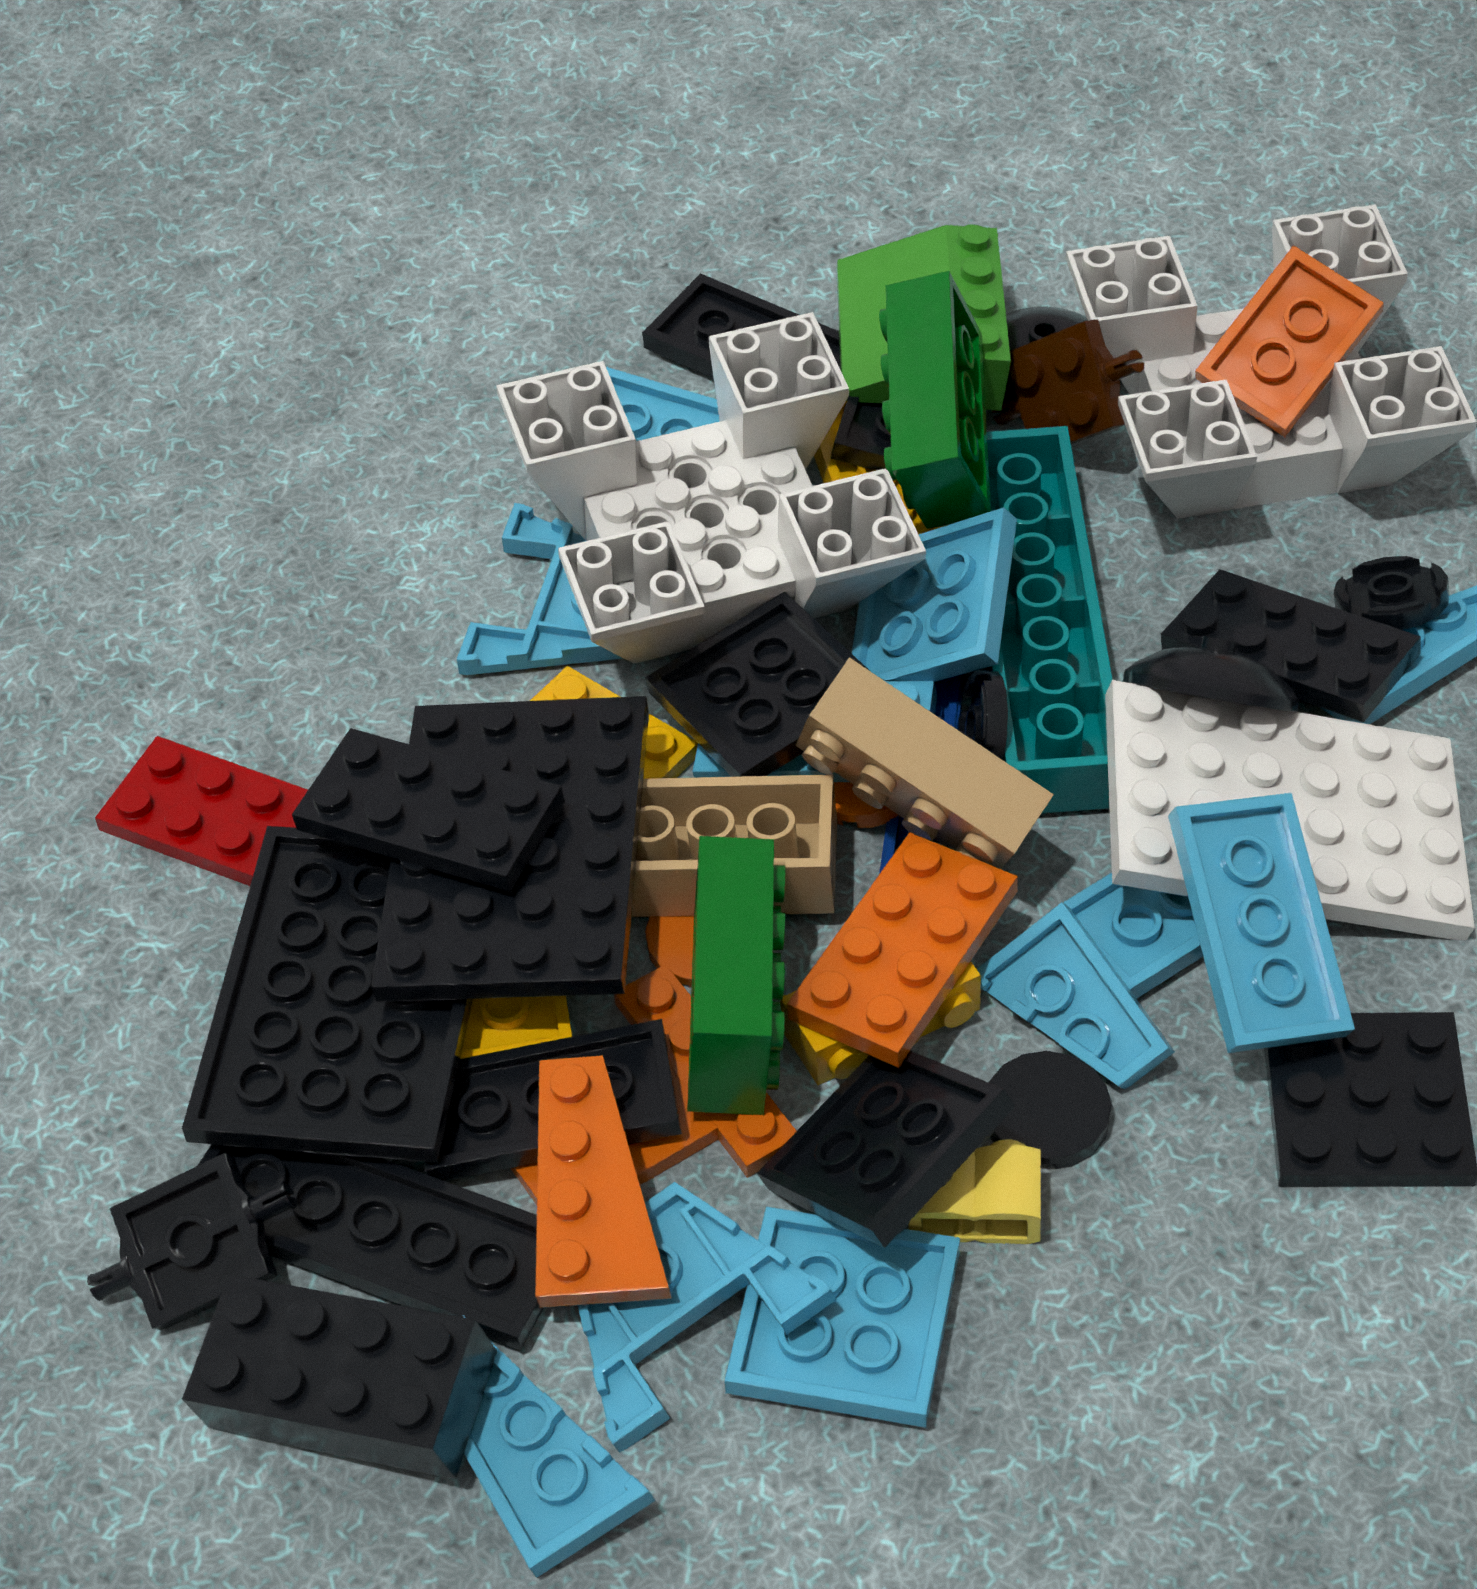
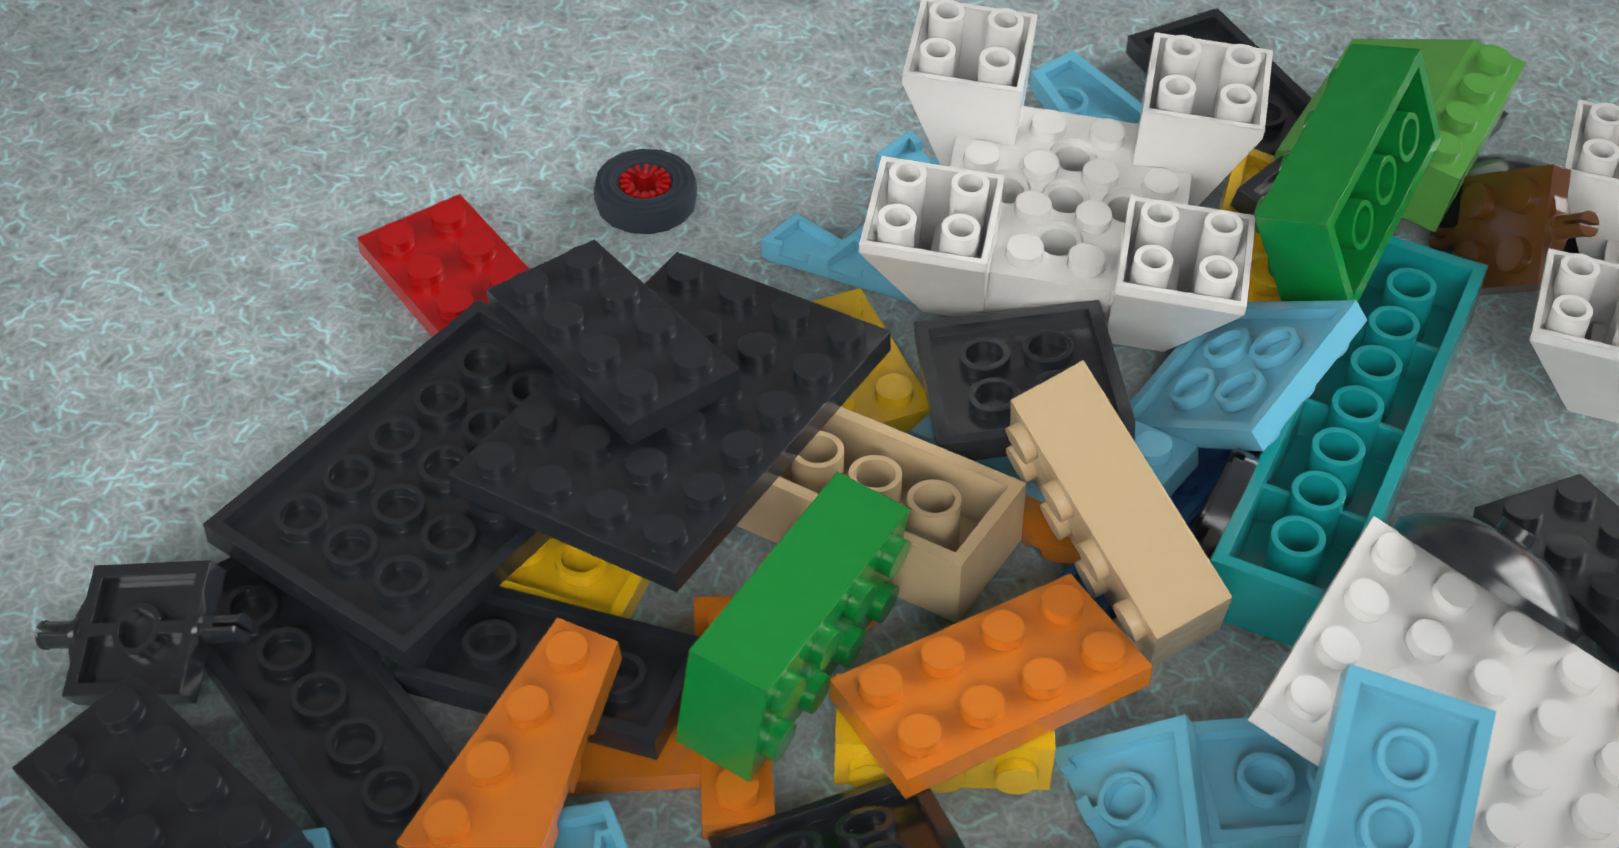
camera: 25 degrees right, 5 degrees down
(303, 643) = (645, 171): none -> black bush

